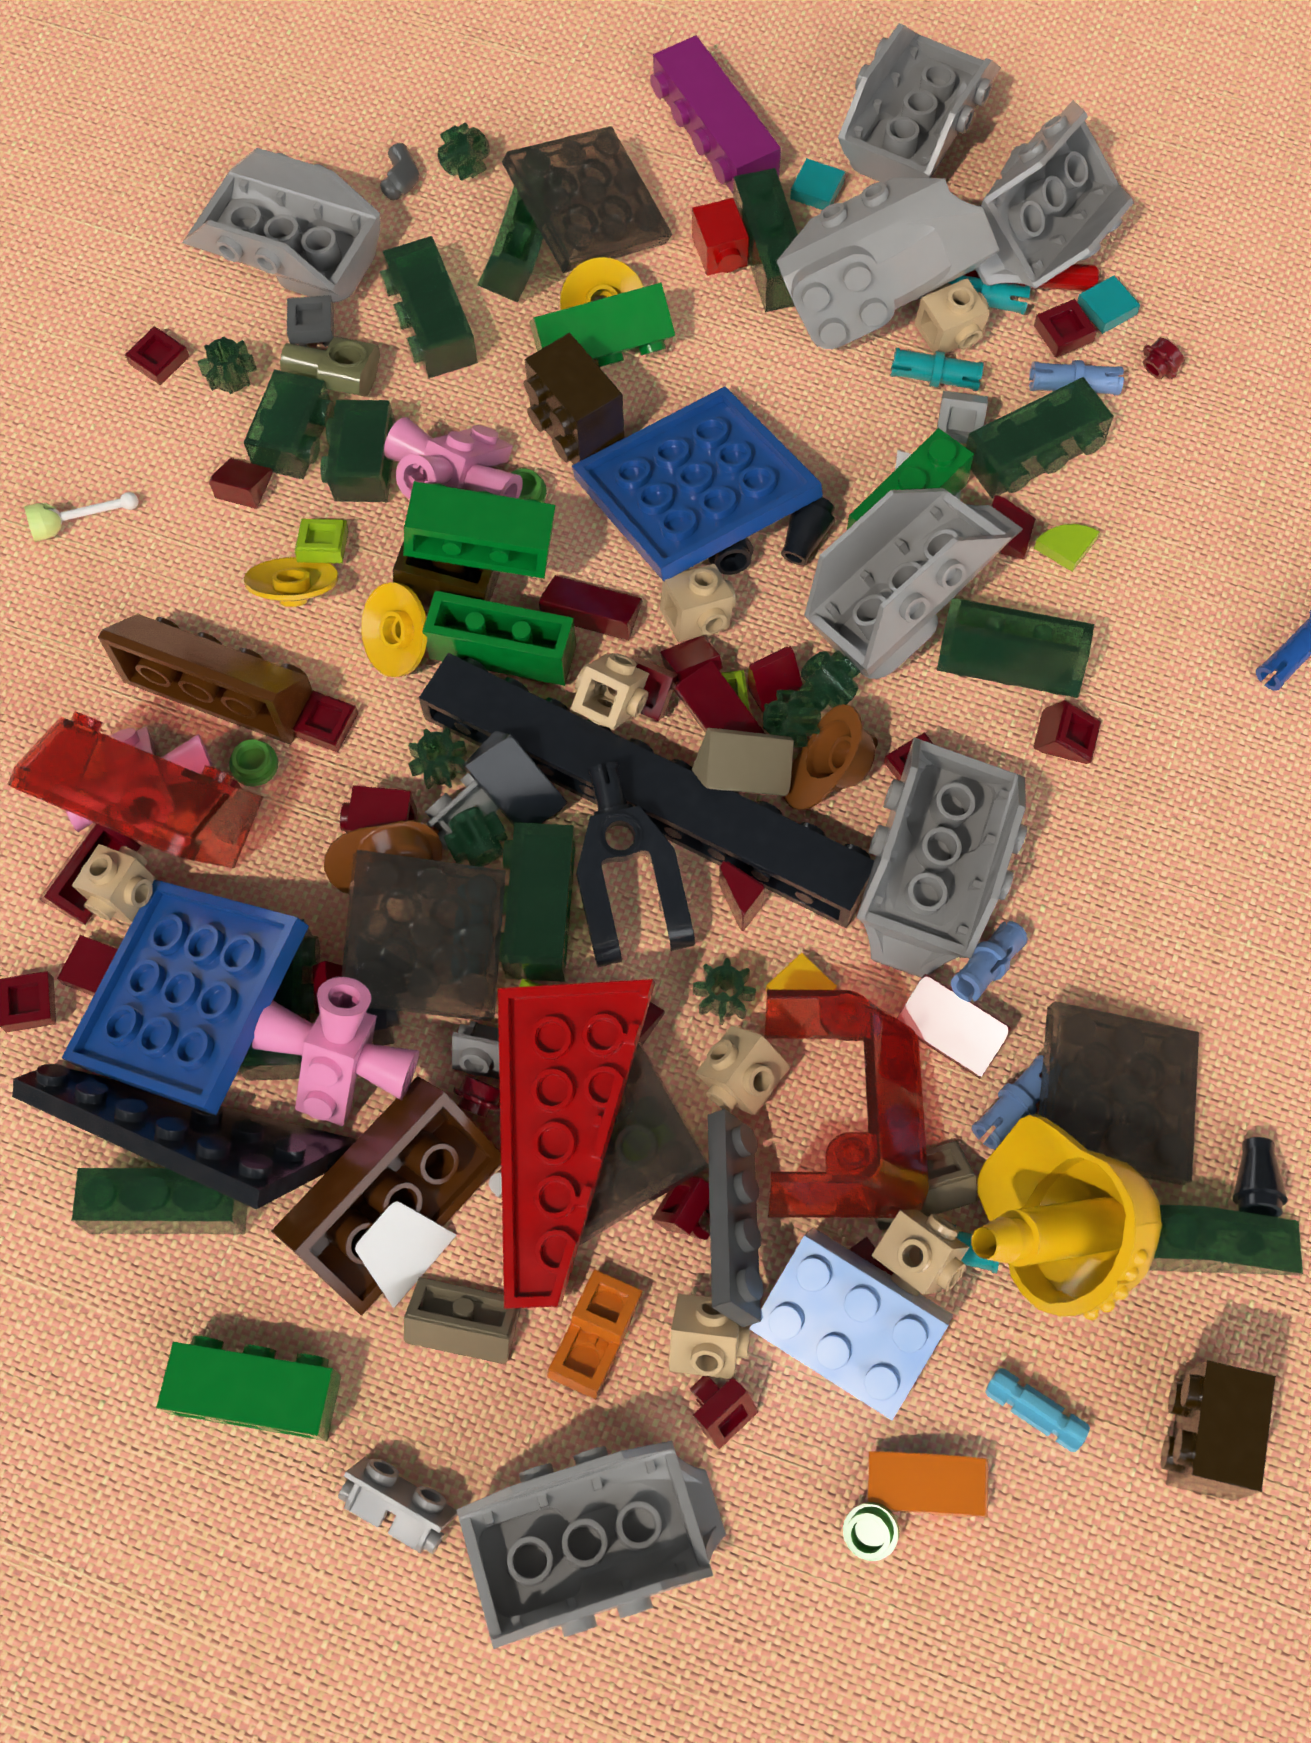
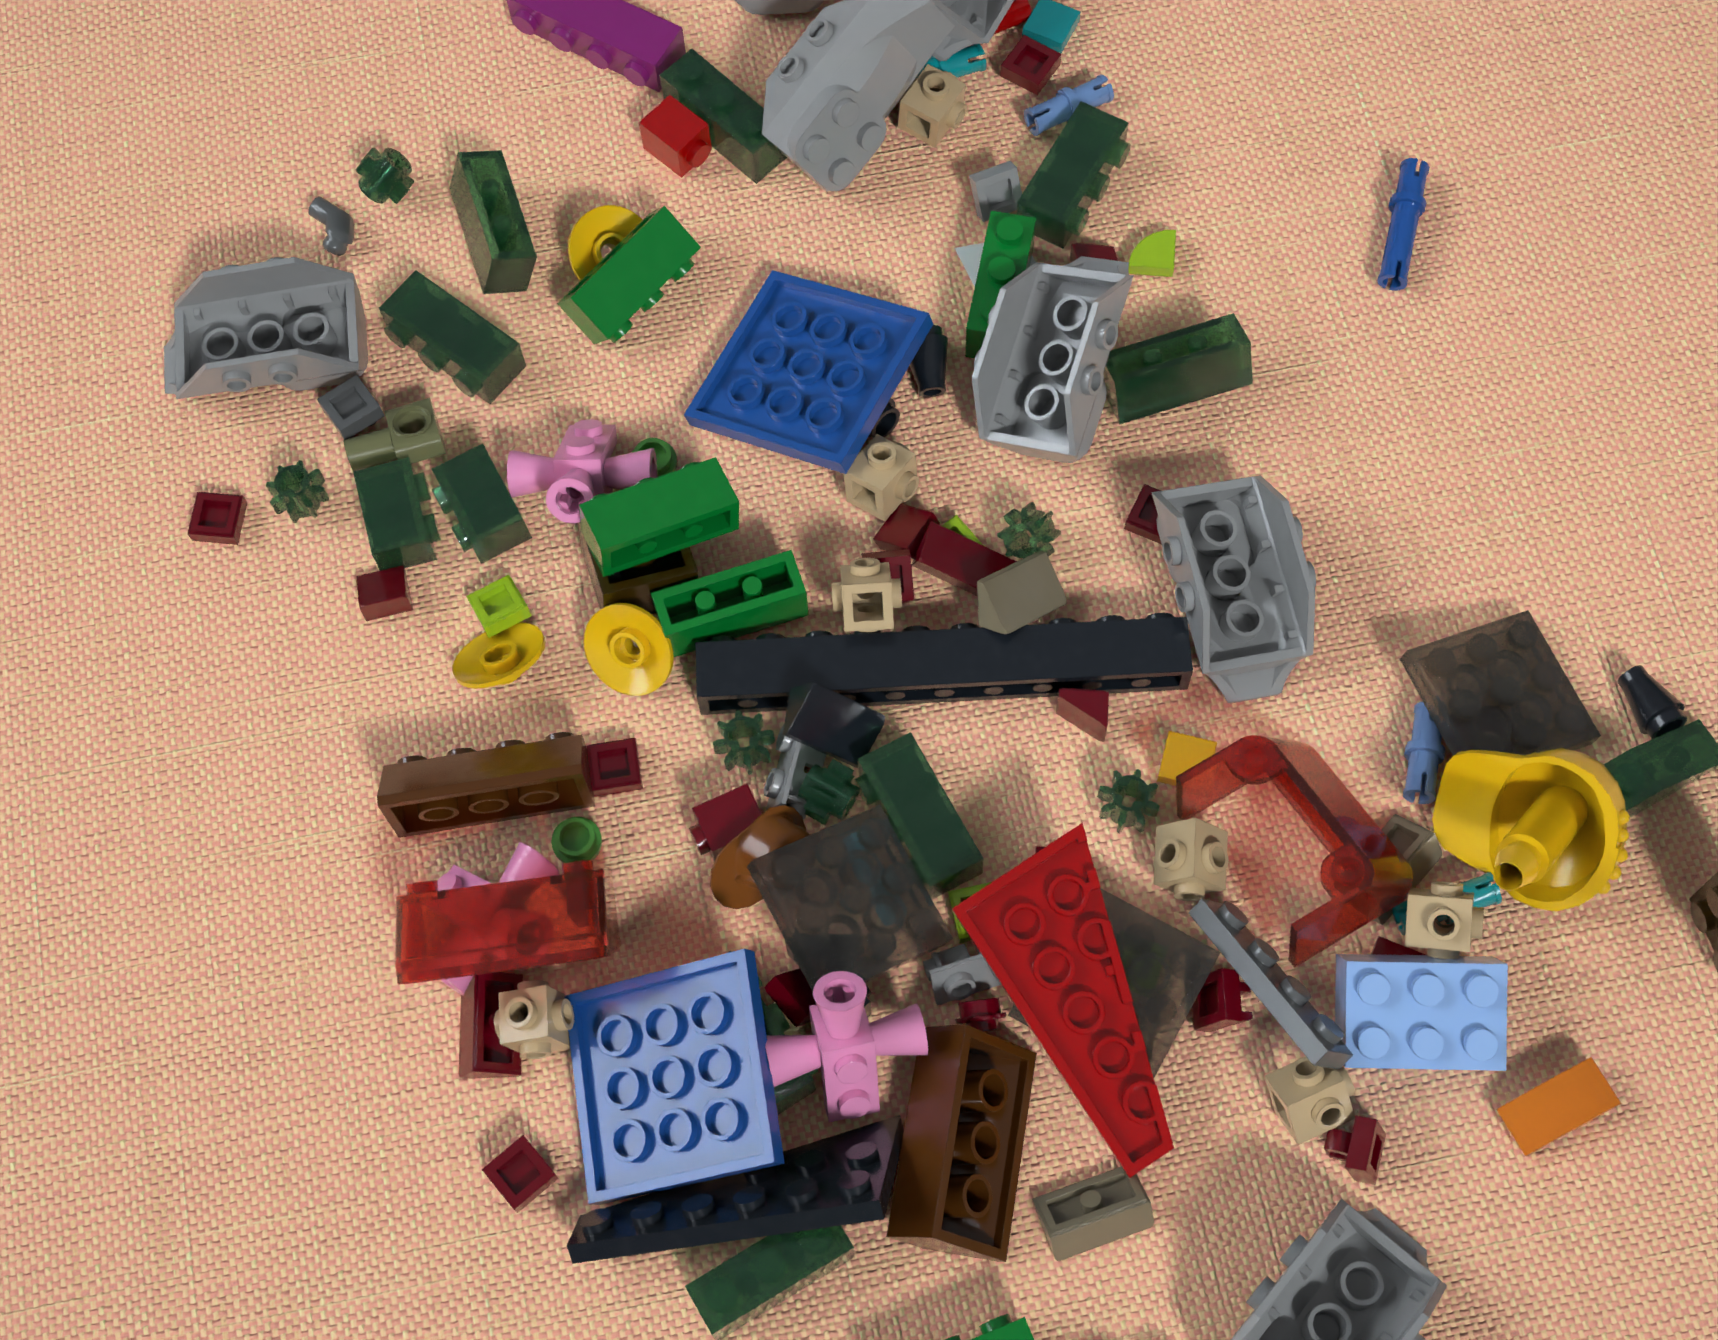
camera: 30 degrees left, 0 degrees up
(46, 520) = (222, 729): hinge -> none
(86, 965) = (553, 1109): dark red tile -> none
(401, 1249) = (1006, 1183): white sticker -> none
(495, 1184) = (1046, 1078): white piece -> none
(573, 400) = (653, 355): dark brown brick -> none
(586, 197) = (537, 162): clear smoke plate -> none
(591, 606) = (788, 529): dark red slope -> none
(594, 1334) = (1213, 1153): orange slope -> none
(647, 842) = (956, 769): black piece -> none
(771, 674) = (988, 507): dark red slope -> none
(817, 184) = (728, 43): teal tile -> none
(830, 679) = (1039, 482): clear green gear -> none
(833, 760) = (1086, 550): dark orange piece -> none
(871, 1531) = (1540, 1172): plate -> none
(936, 369) = (945, 158): teal pin -> none
(954, 1026) = (1333, 719): slope -> none
(989, 961) = (1330, 648): medium blue pin -> none
(1037, 1410) = (1602, 994): medium azure axle -> none
(1067, 733) = (1259, 418): dark red slope -> none
(1162, 359) = (1129, 50): dark red plate -> none

